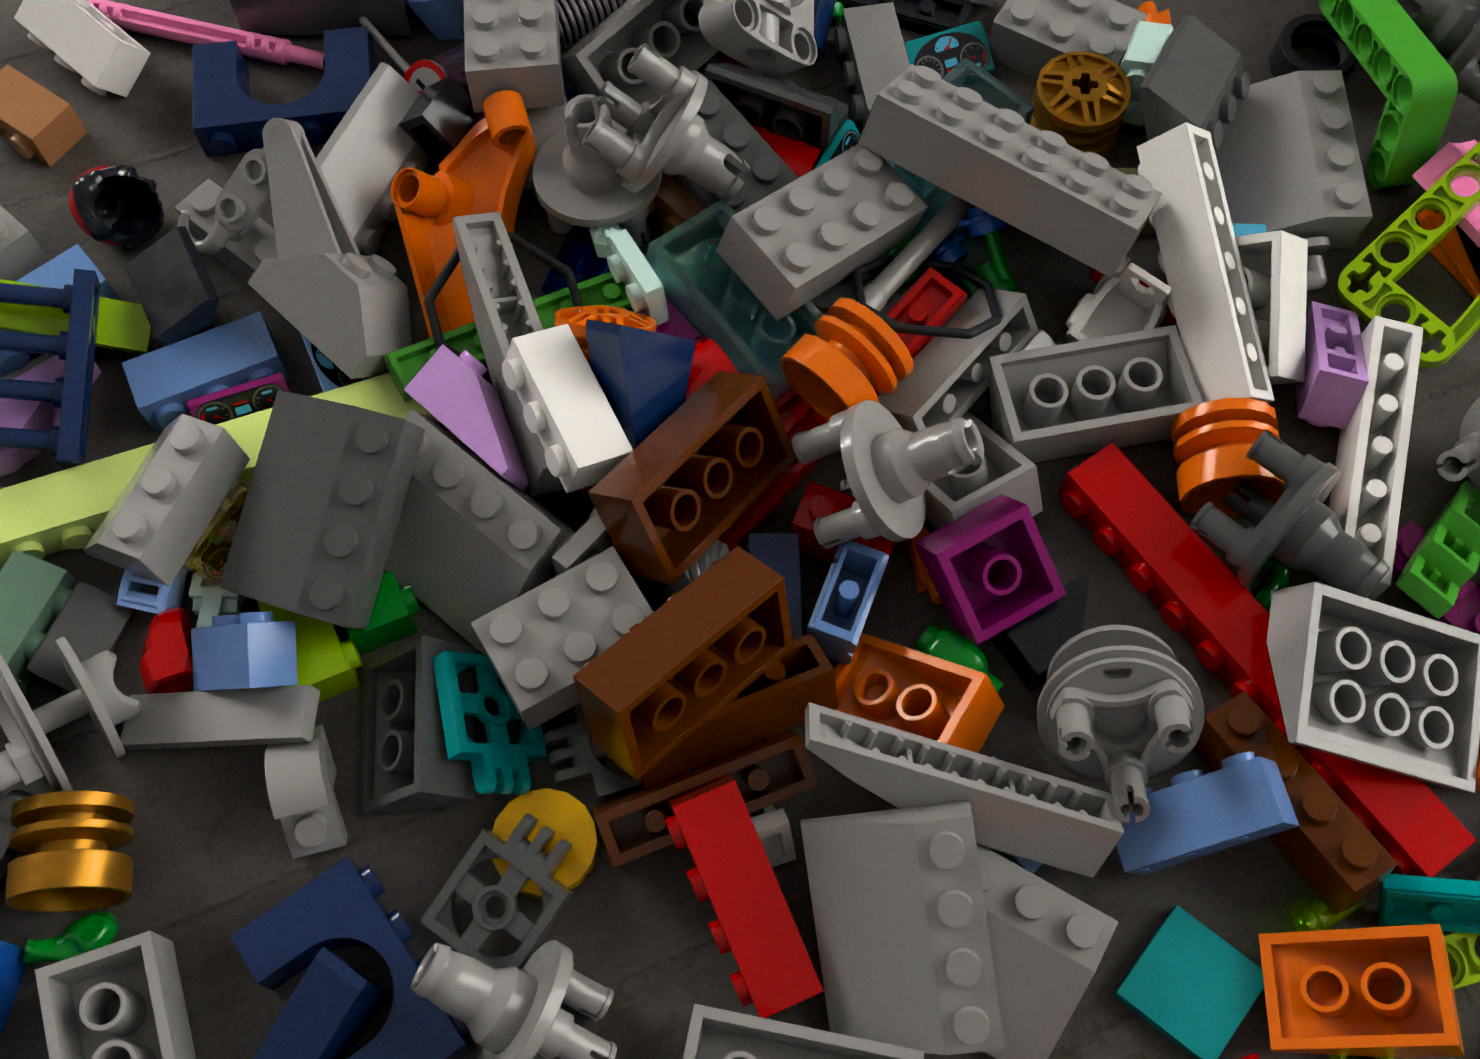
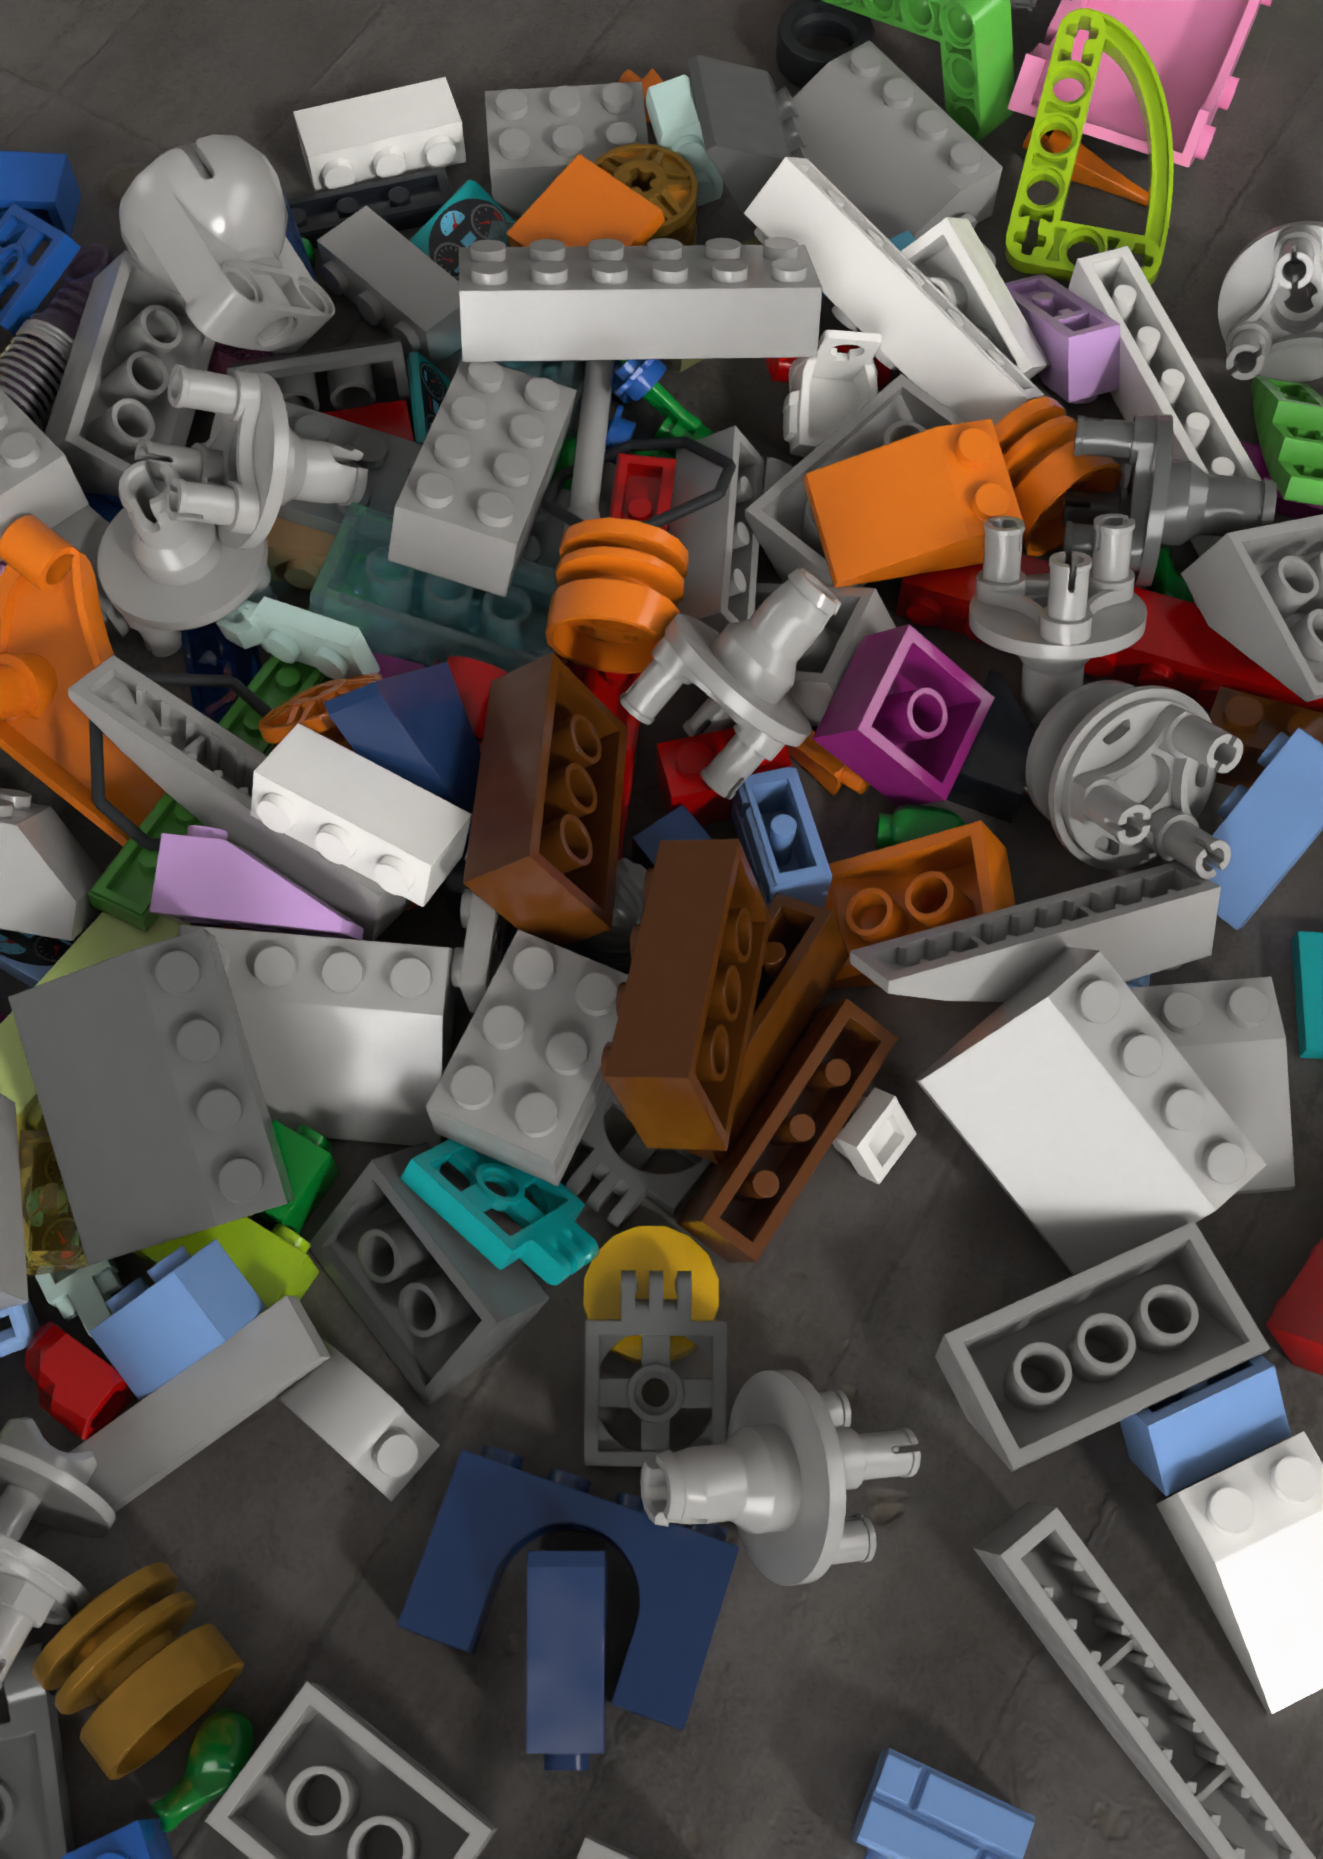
camera: 35 degrees left, 0 degrees up
(745, 897) = (907, 1196): red brick -> none
(1029, 85) = (586, 207): none -> orange tile
(1107, 424) = (911, 504): none -> orange slope
(1151, 564) = (1060, 615): none -> light grey piece

